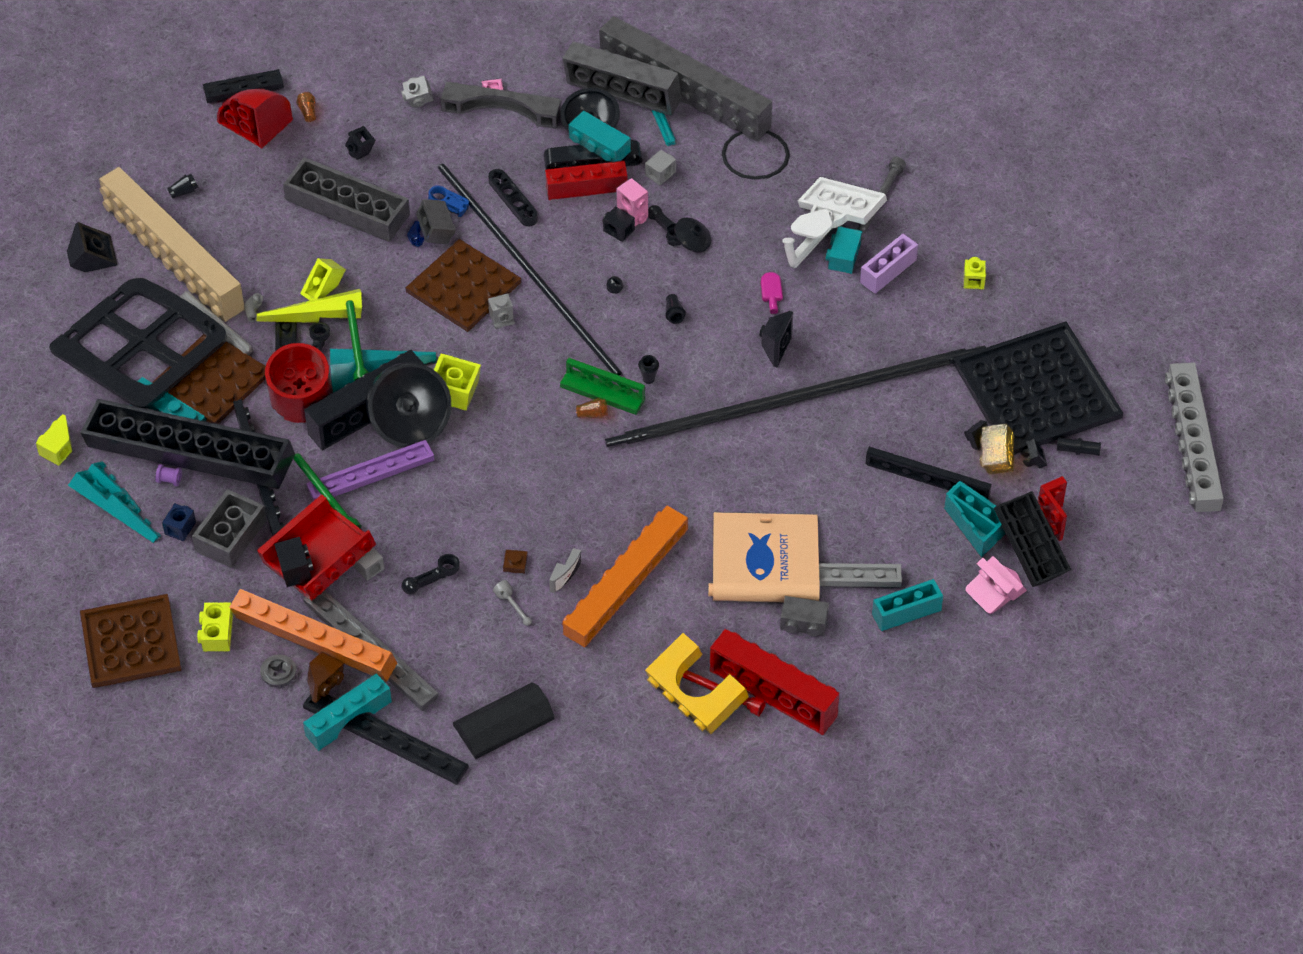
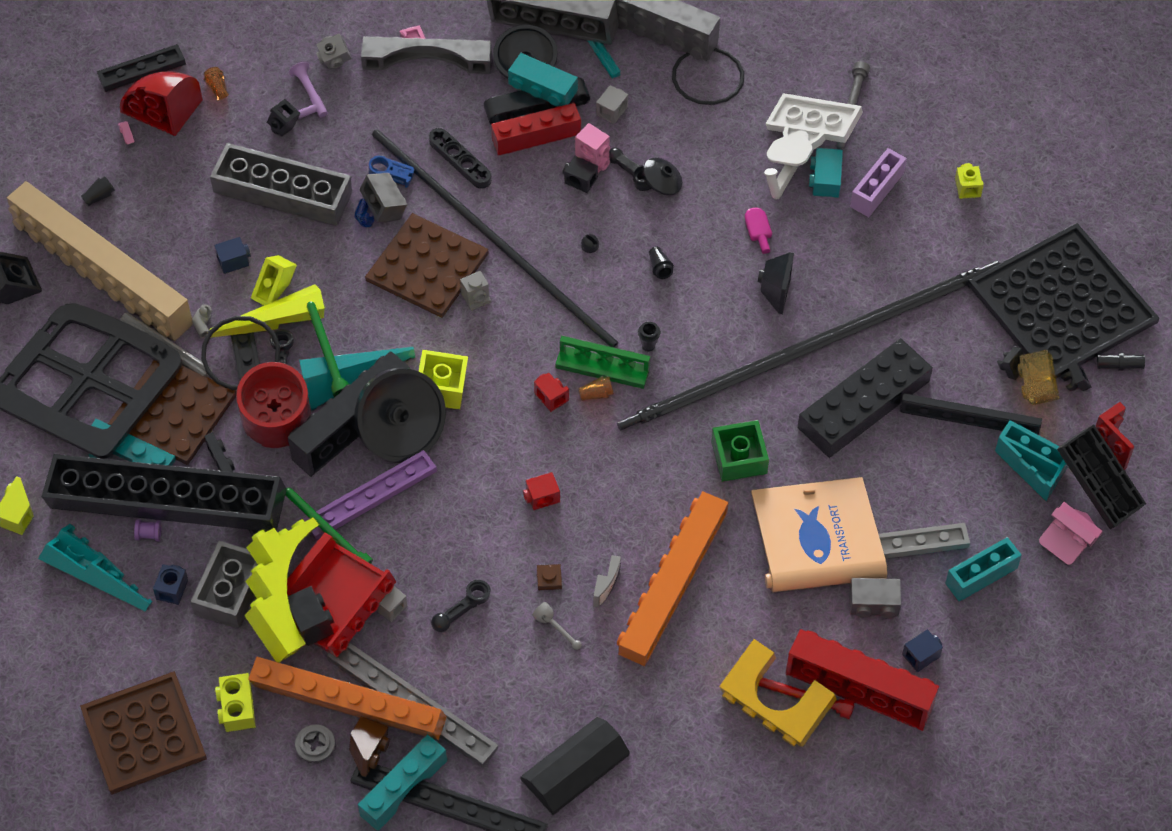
camera: 10 degrees left, 5 degrees up
(218, 139) = (126, 132): none -> bright pink tile
(259, 550) = (271, 612): none -> neon yellow arch
(273, 308) = (223, 322): none -> black piece
(291, 254) = (232, 255): none -> dark blue brick
(384, 105) = (300, 71): none -> lavender piece
(523, 488) = (542, 491): none -> red brick
(550, 405) = (551, 391): none -> red brick
(709, 476) = (740, 450): none -> green brick
(833, 446) = (864, 397): none -> black brick
(837, 666) = (922, 650): none -> dark blue brick

